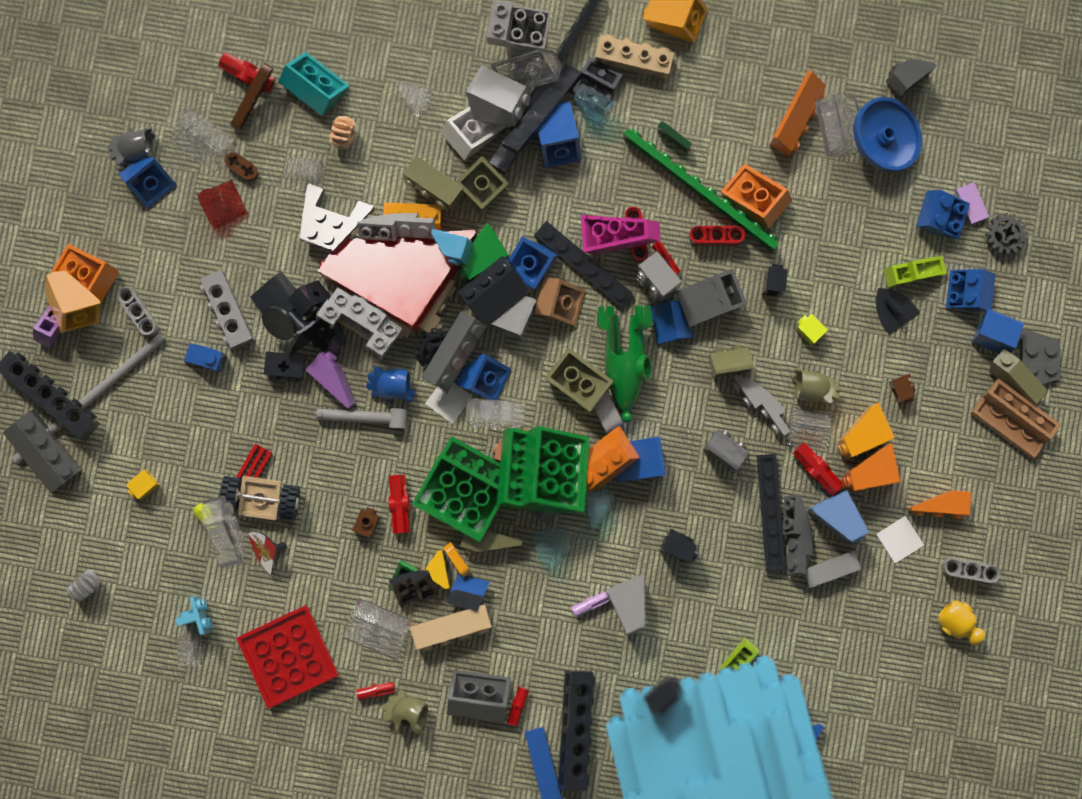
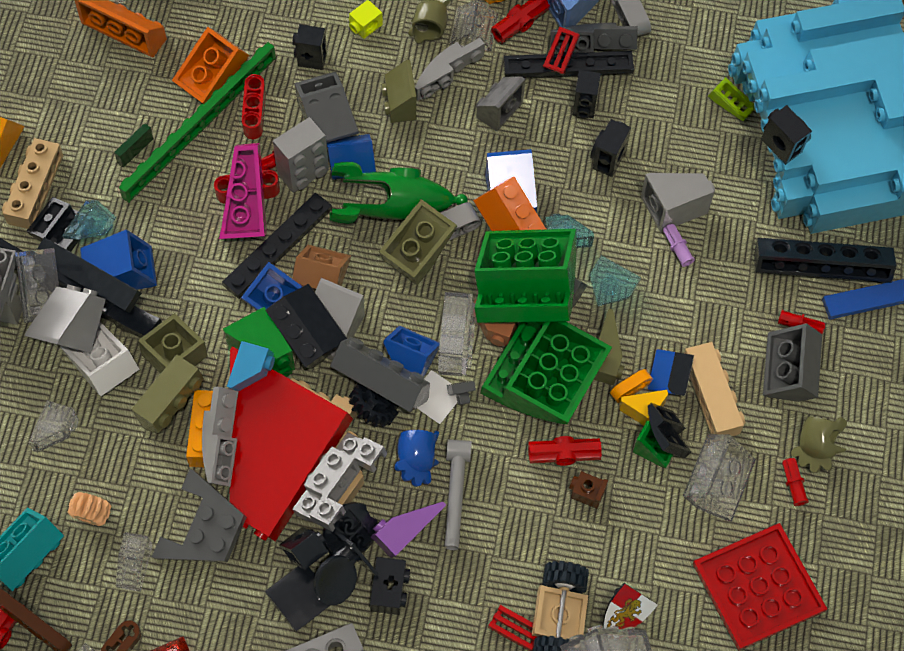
camera: 95 degrees left, 20 degrees down
(450, 420) = (461, 390): none -> dark grey tile
(732, 526) = (586, 94): none -> black brick
(792, 510) = (555, 68): none -> red tile

